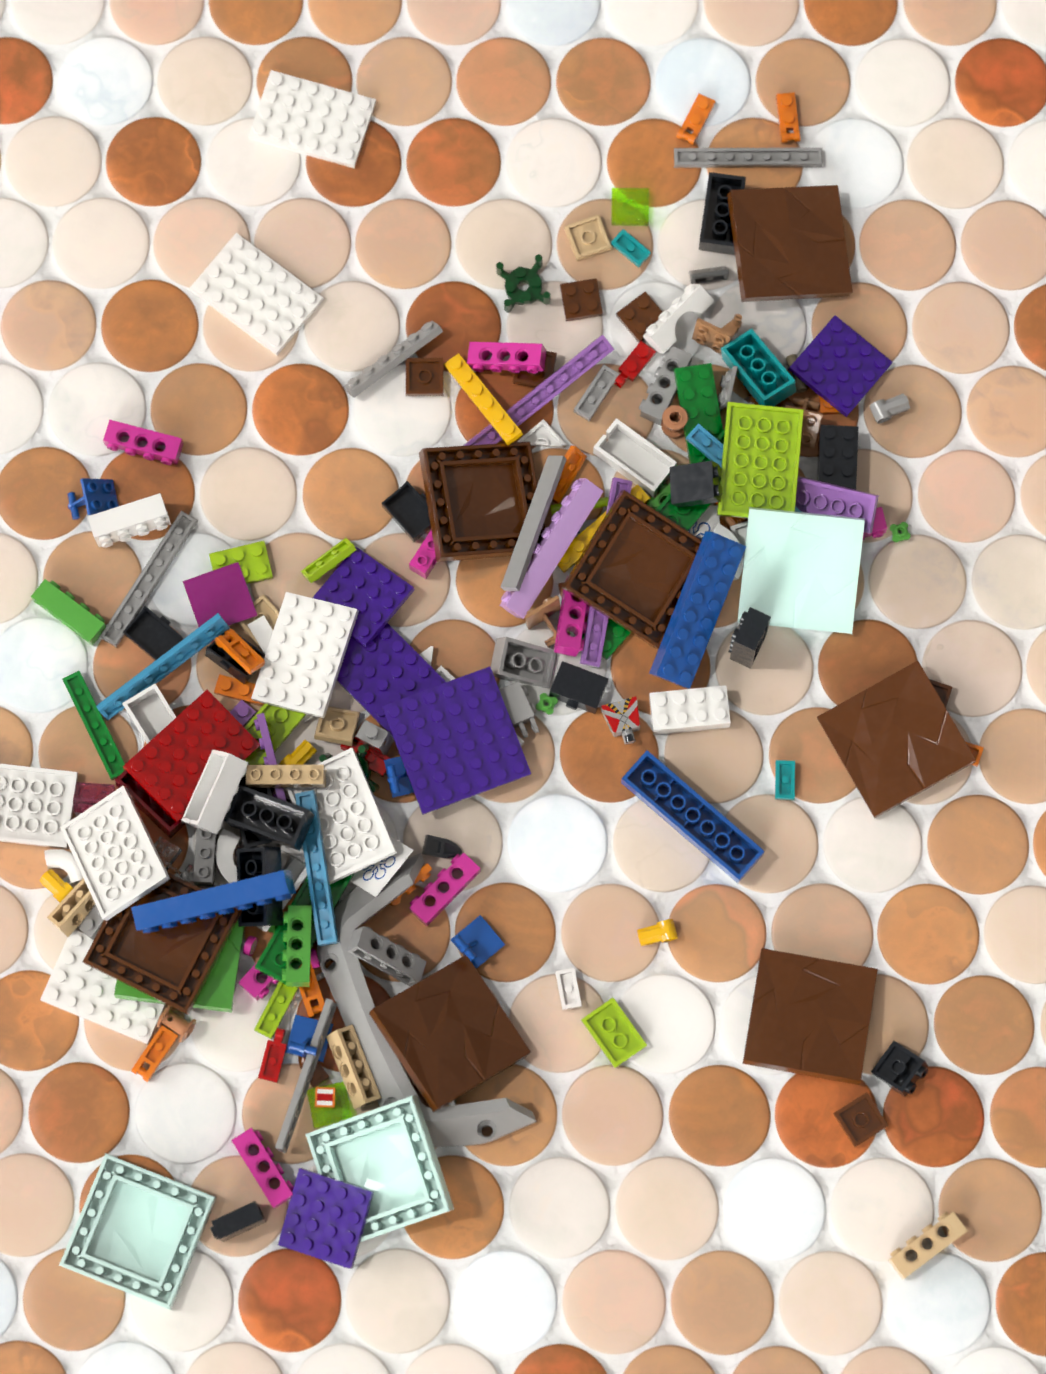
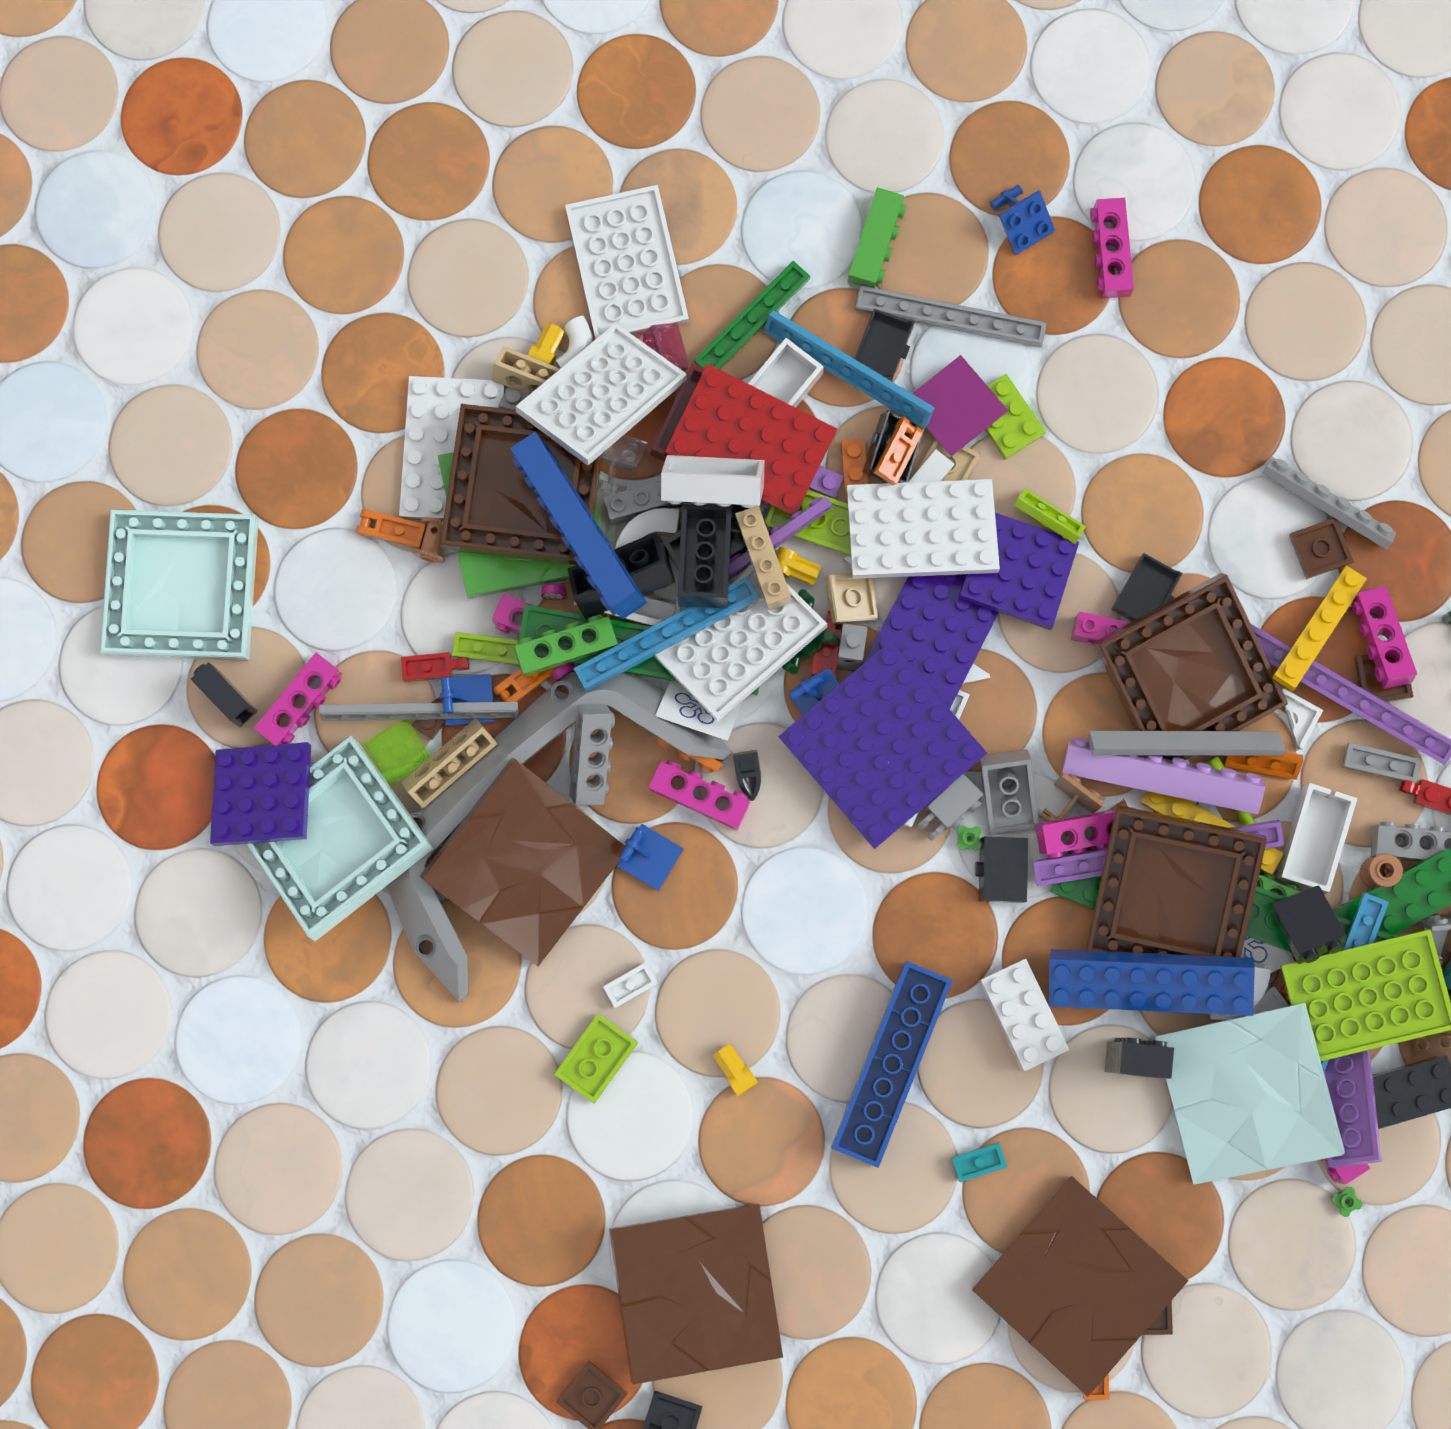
camera: 70 degrees right, 5 degrees up
(129, 520) = (1010, 266): white brick -> none
(256, 294) = (1347, 313): white plate -> none
(325, 1097) = (402, 742): tile -> none
(622, 718) = (983, 936): torso -> none

